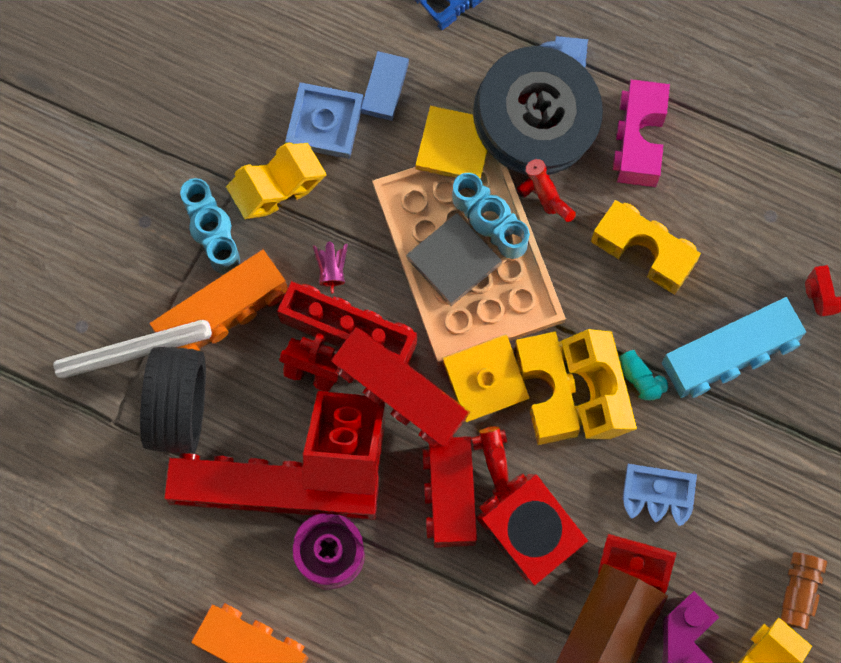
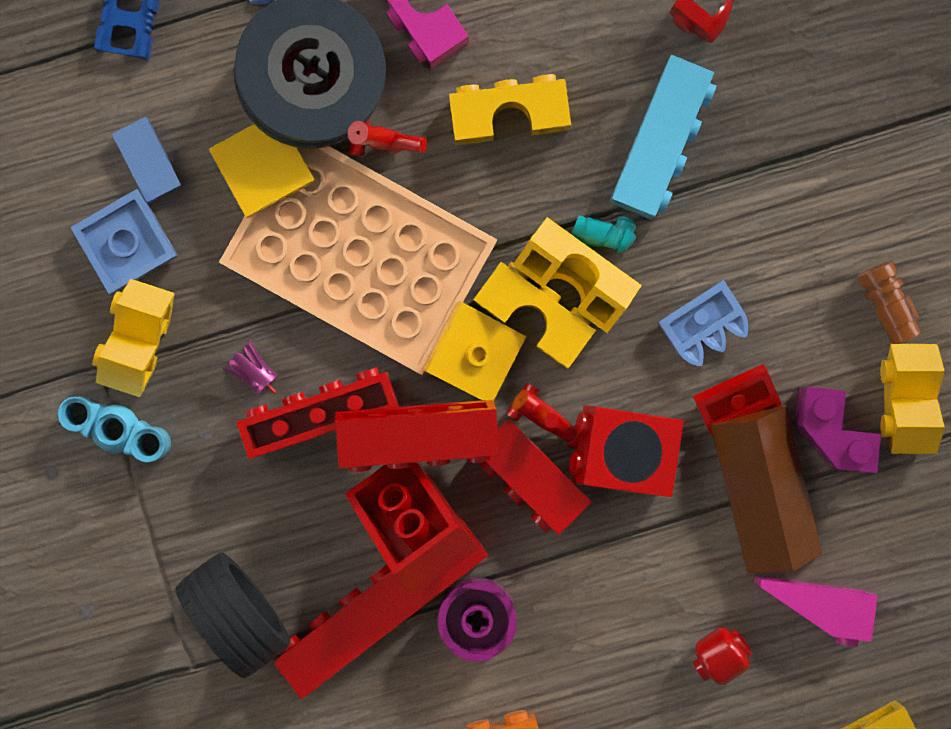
camera: 50 degrees left, 15 degrees up
(132, 349) = (154, 598): white axle -> none
(228, 299) = (191, 493): orange brick -> none
(310, 357) = (313, 469): red hips -> none
(454, 259) = (355, 272): dark grey tile -> none
(482, 202) = (336, 197): medium azure piece -> none

